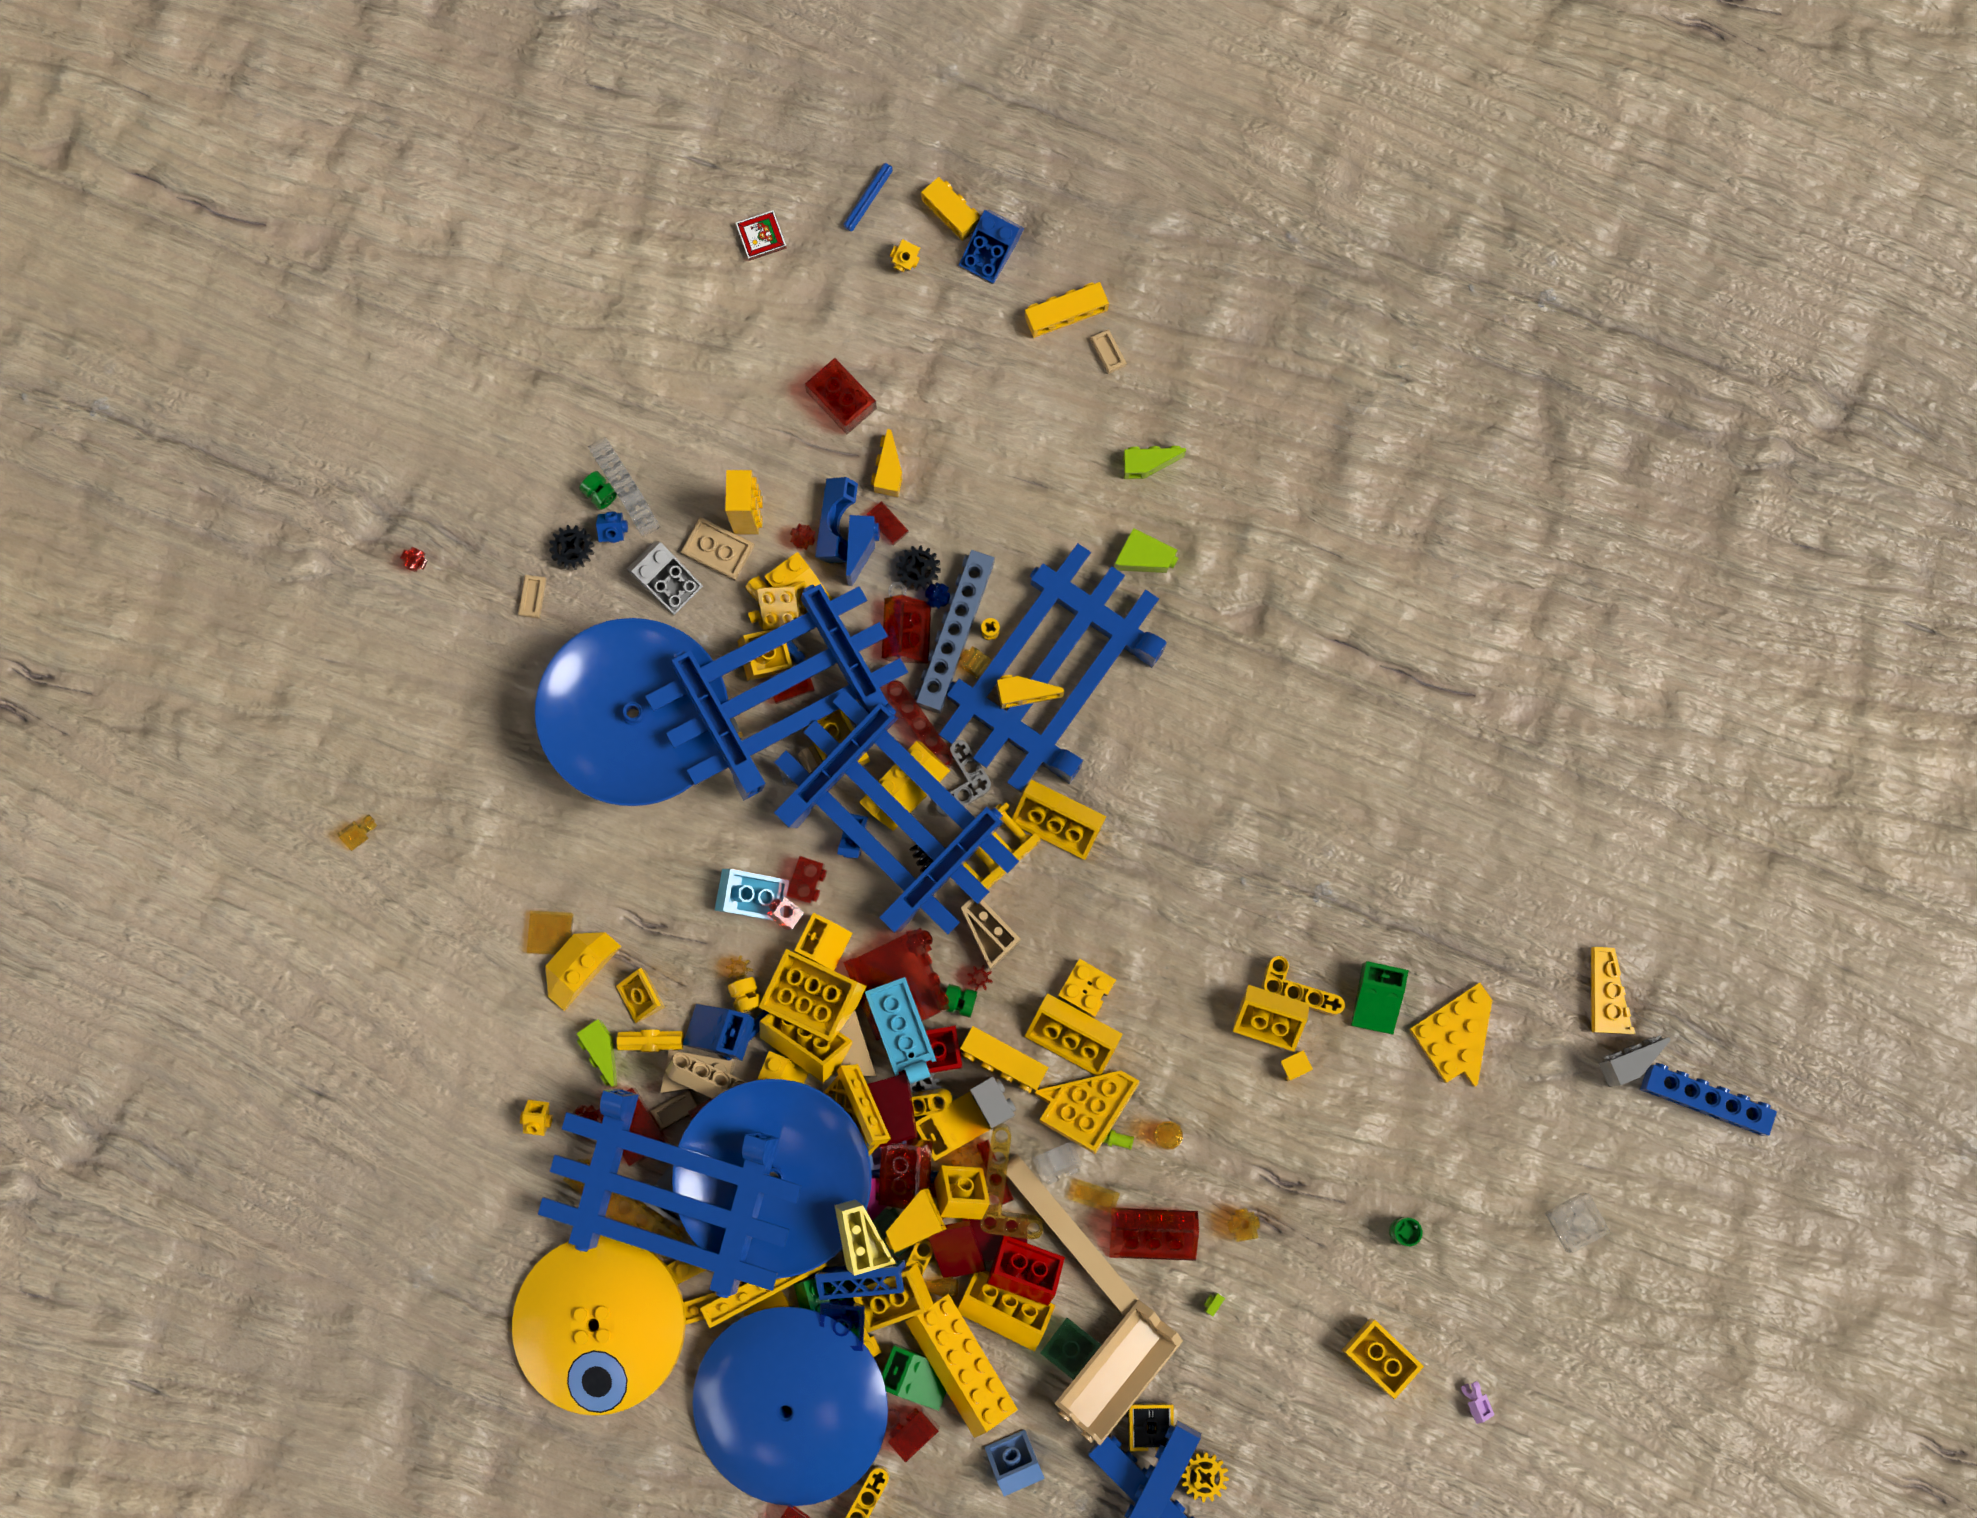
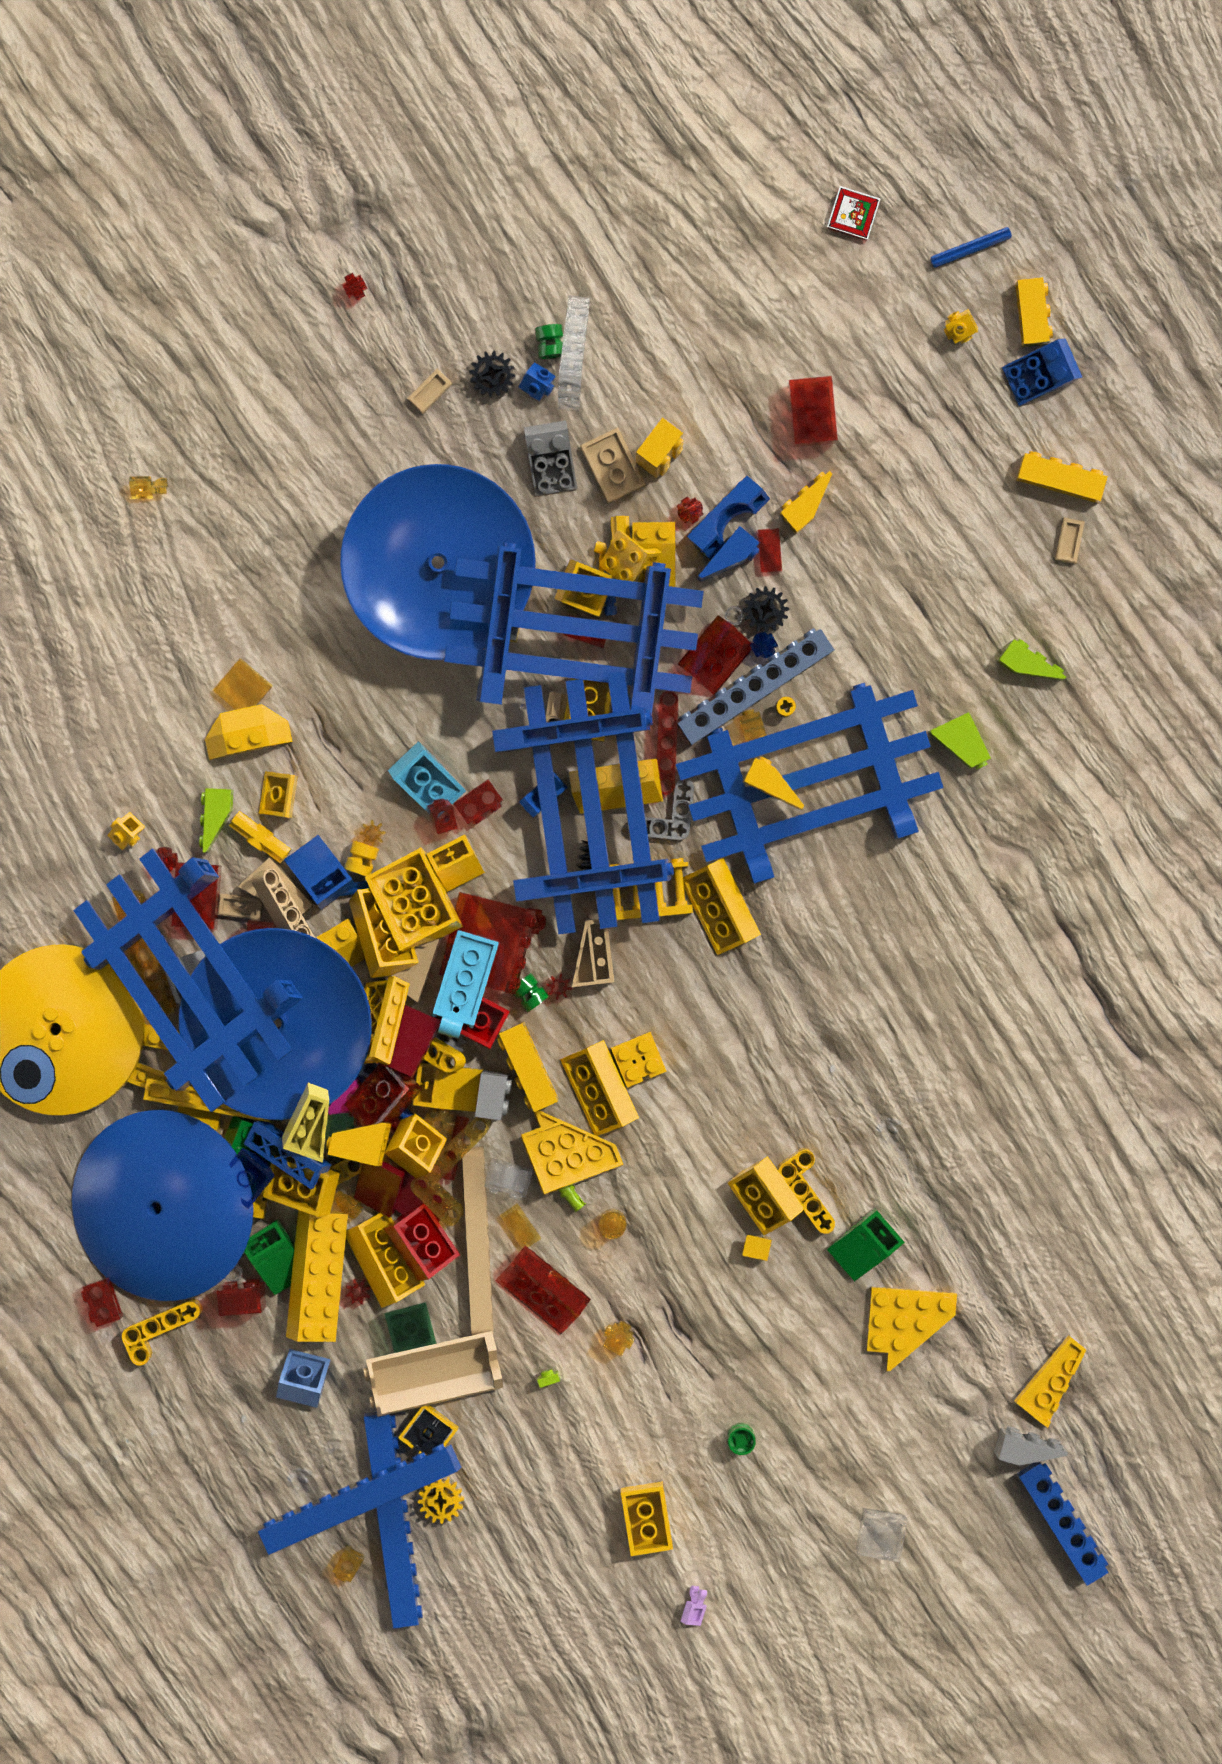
camera: 40 degrees right, 10 degrees up
(1009, 1348) = (352, 1292): none -> clear red gear

